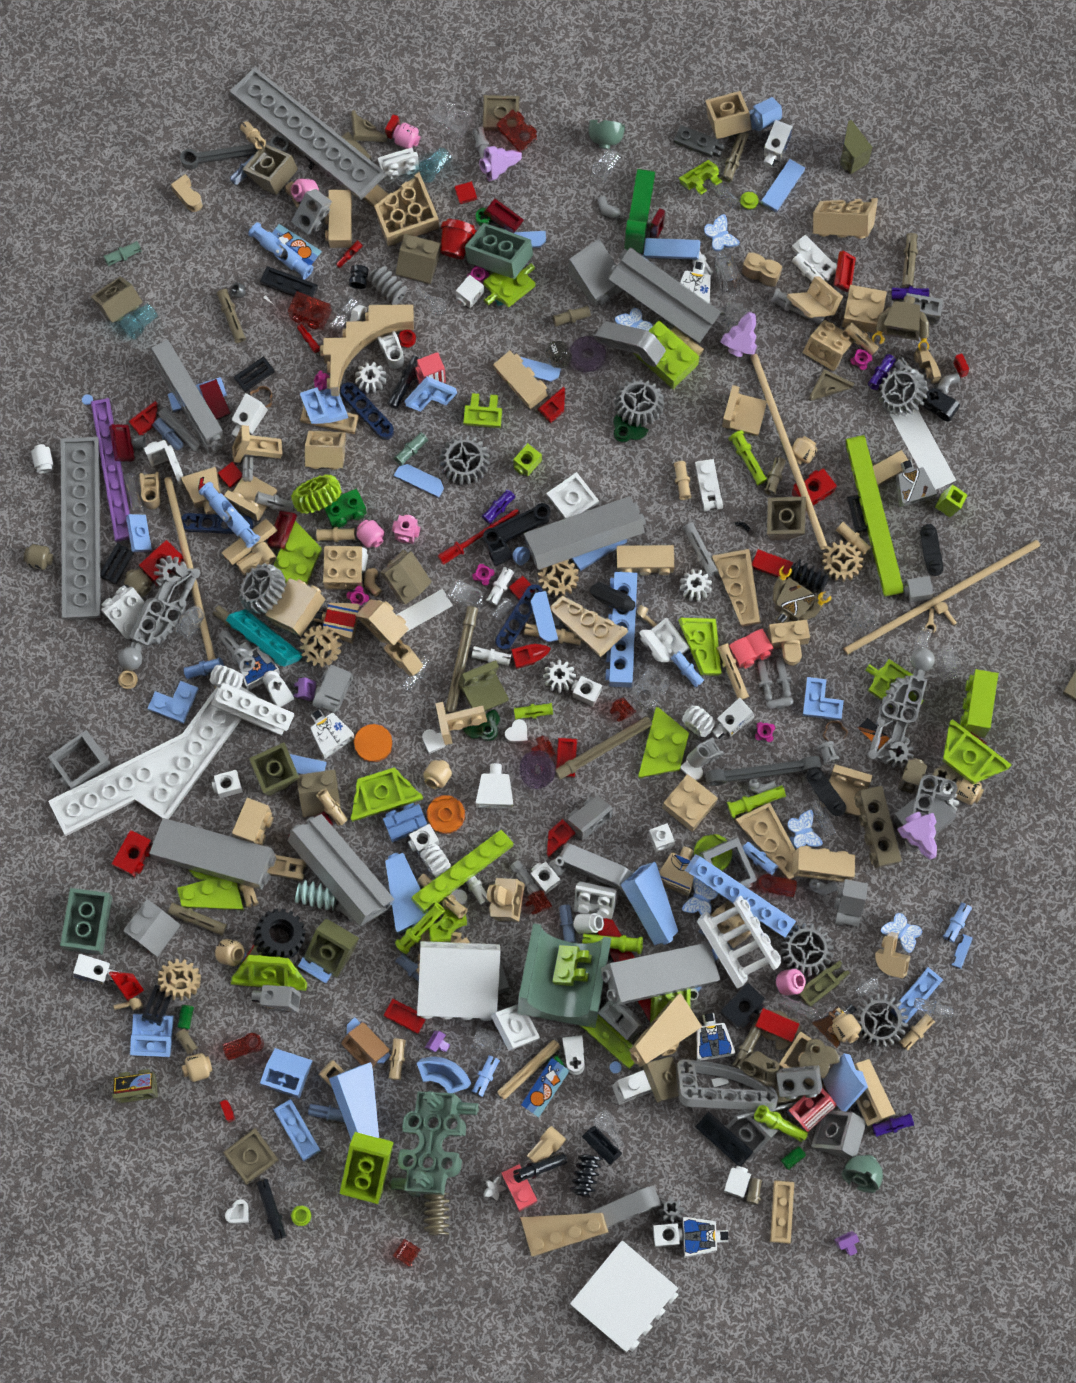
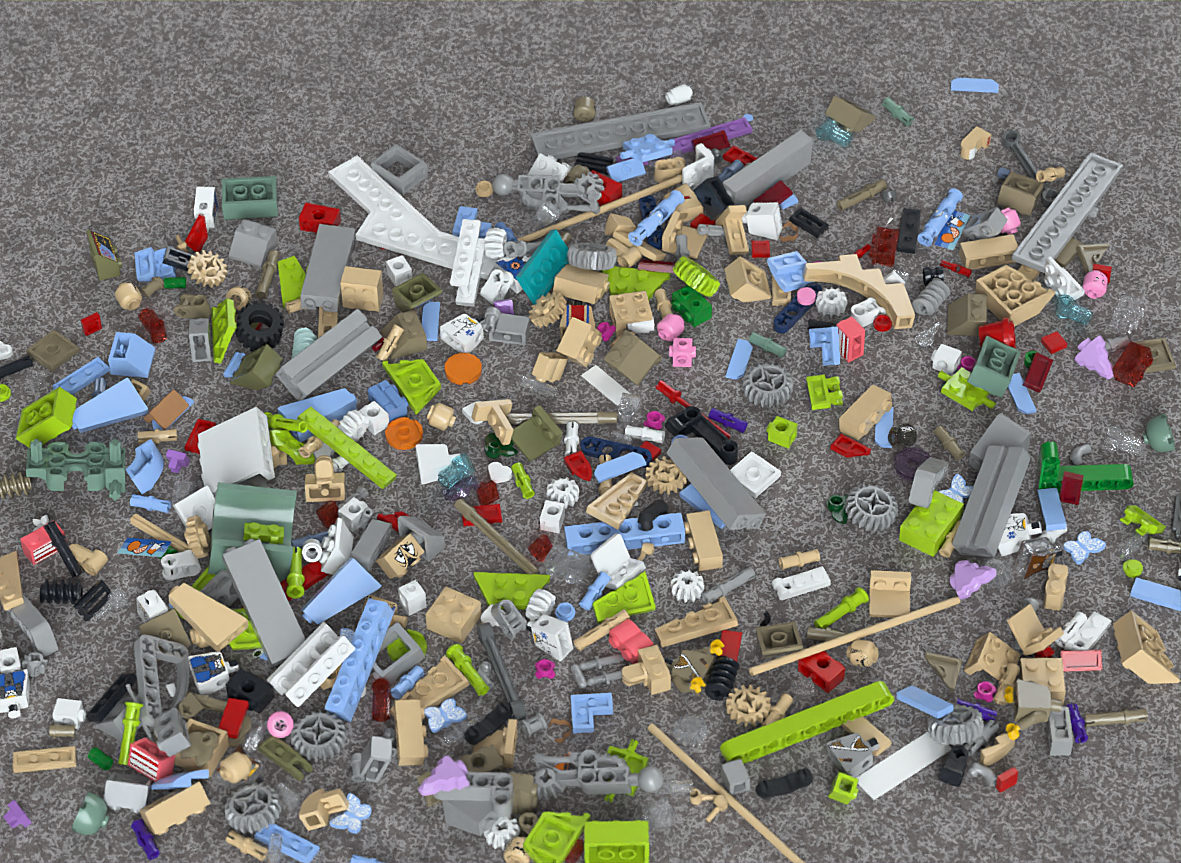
camera: 80 degrees right, 25 degrees down
(100, 173) = (975, 85): none -> light blue piece
(120, 504) = (647, 148): none -> light blue plate
(216, 555) = (620, 223): none -> tan tile
(218, 453) = (713, 197): none -> black brick
(225, 1005) = (193, 307): none -> dark tan piece
(278, 427) = (760, 249): none -> red tile
(361, 398) = (806, 296): none -> bright pink tile
(515, 770) = (459, 469): none -> clear light blue piece
(552, 1031) = (197, 536): none -> tan gear
(610, 840) = (400, 556): none -> tan brick
(702, 700) = (565, 612): none -> light blue plate
(871, 410) = (925, 701): none -> light blue tile

